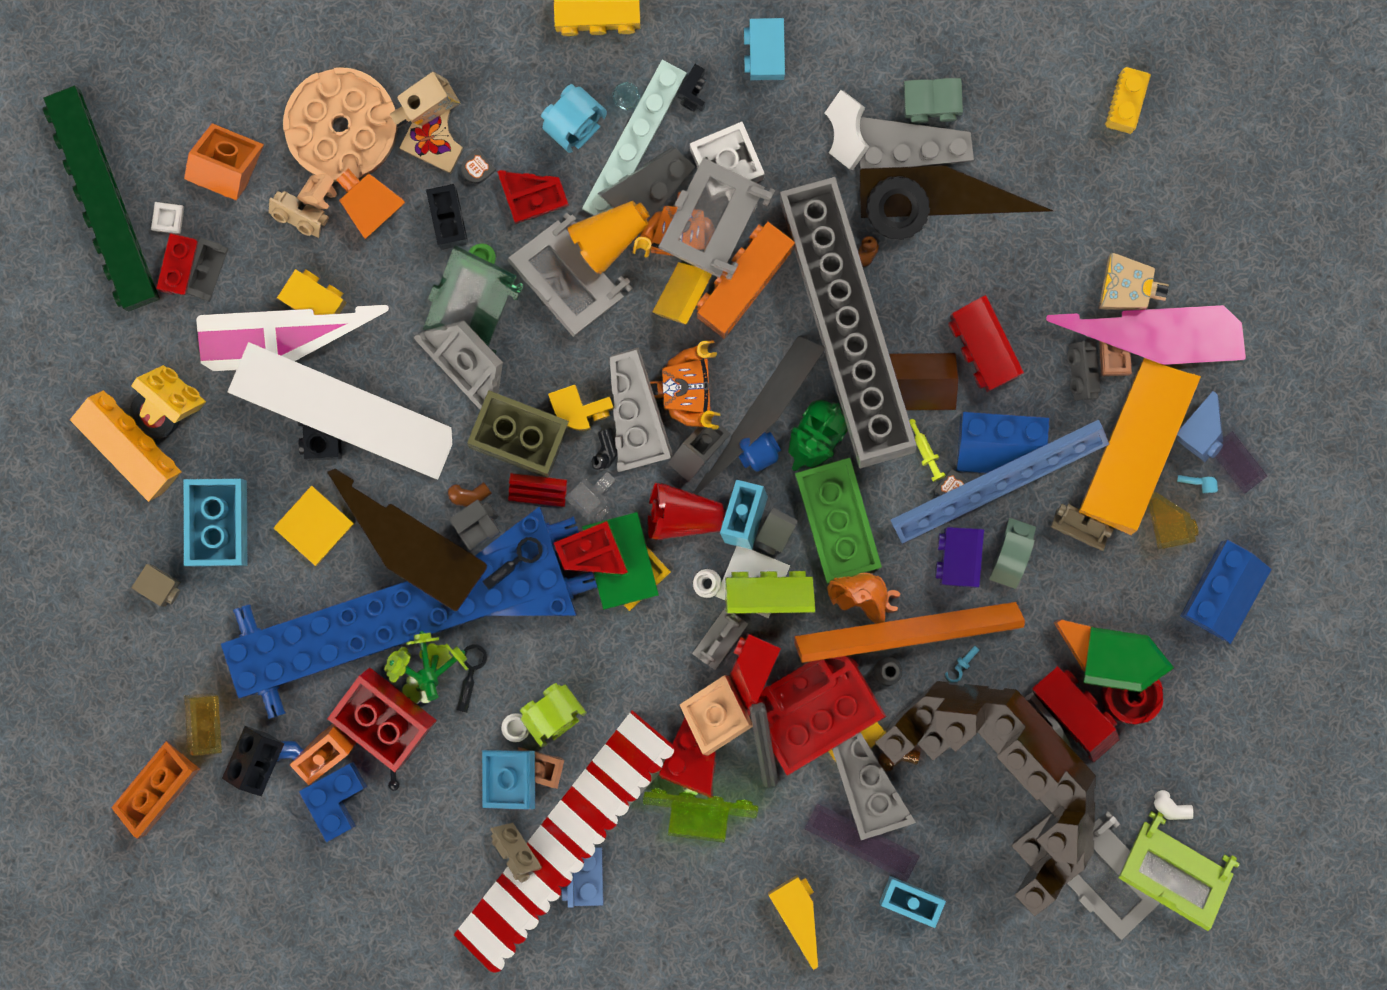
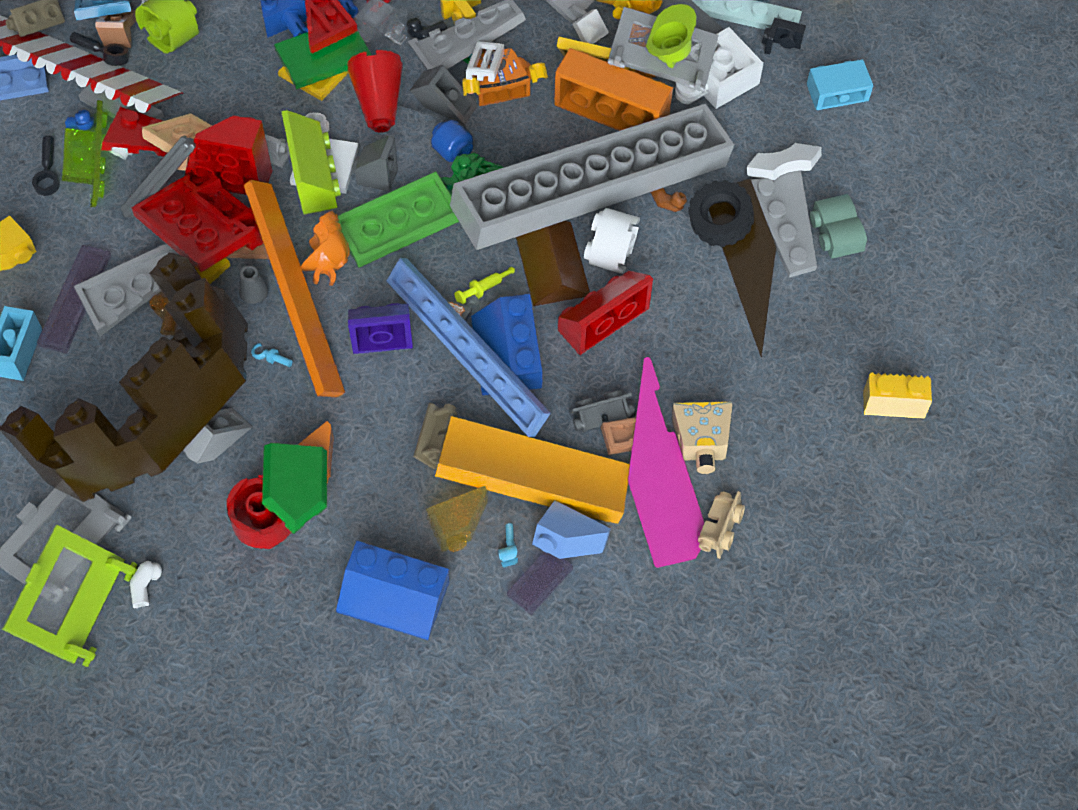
camera: 70 degrees right, 25 degrees down
(556, 794) = (112, 54): none -> black piece
(641, 281) = (590, 27): none -> white tile
(661, 813) = (81, 121): none -> blue arm
(694, 855) = (47, 163): none -> black piece
(707, 407) = (491, 72): none -> white tile
(716, 208) = (672, 34): none -> lime piece
(744, 514) = (379, 124): medium azure brick -> none
(914, 320) = (612, 240): none -> white brick
(1013, 553) = (394, 369): sand green brick -> none
(1077, 712) = (226, 462): red wedge -> none
(1228, 298) = (726, 512): none -> tan hinge

